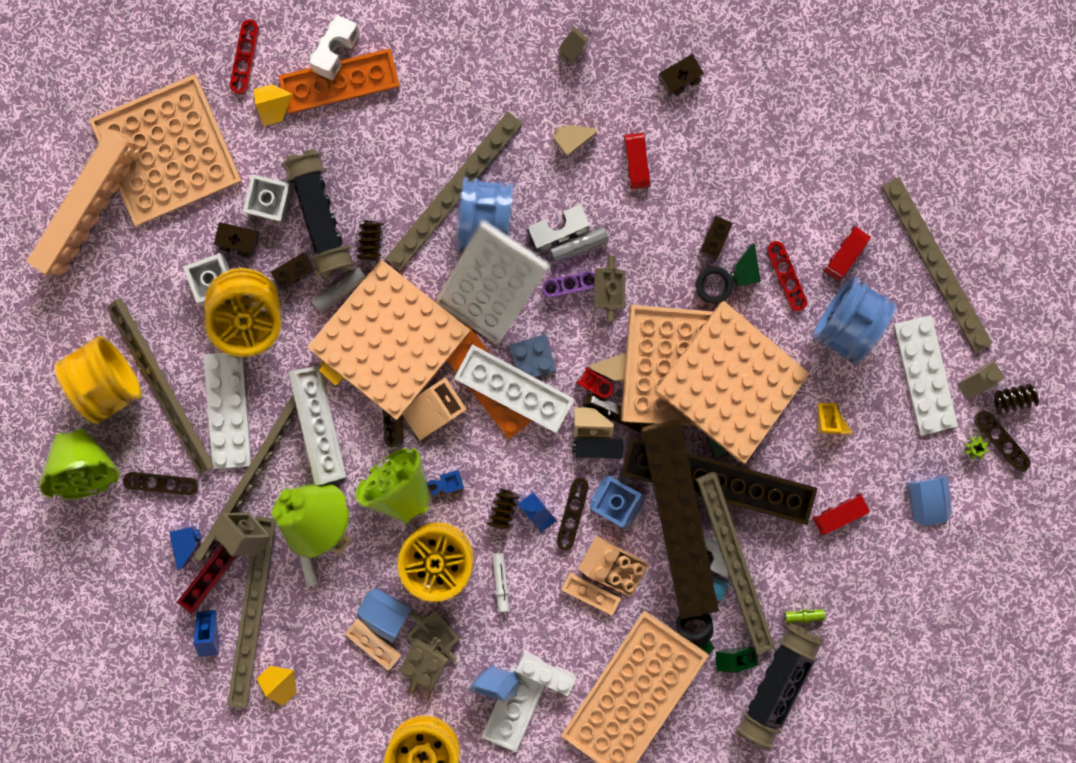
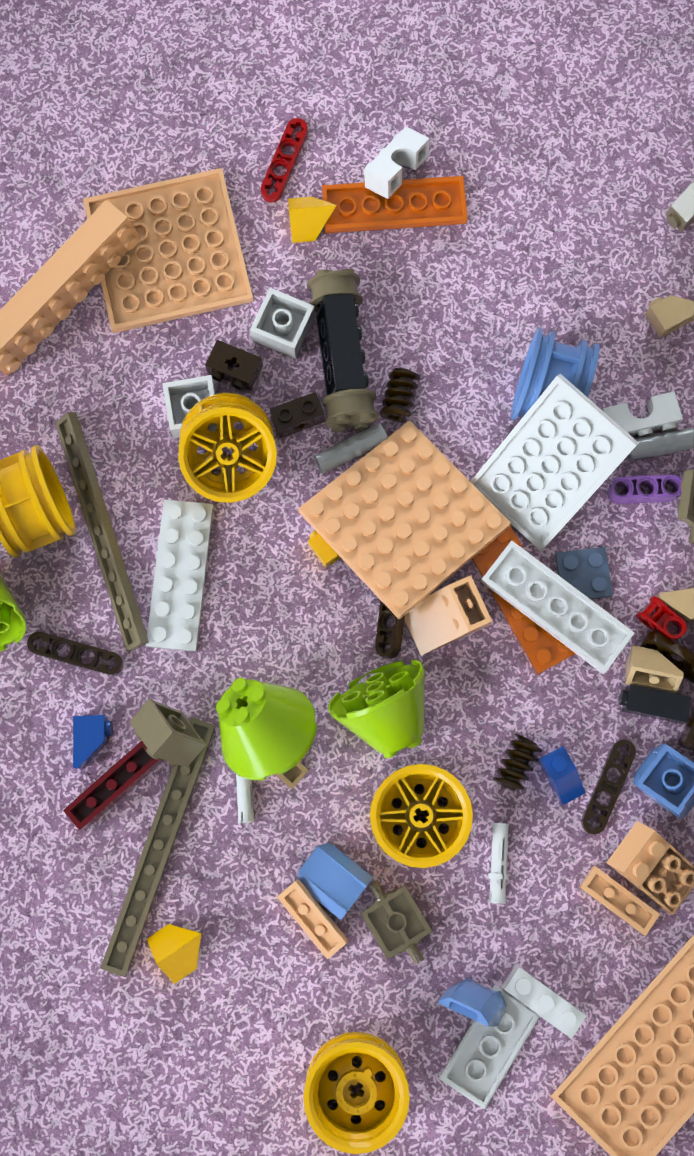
camera: 10 degrees right, 10 degrees down
(206, 633) = (92, 864): blue slope -> none
(253, 470) = (198, 656): dark tan plate -> none
(317, 425) = (293, 610): white plate -> none
(423, 664) = (378, 958): dark tan plate -> none
(449, 482) = (451, 716): blue plate -> none
(453, 191) = (510, 356): dark tan plate -> none

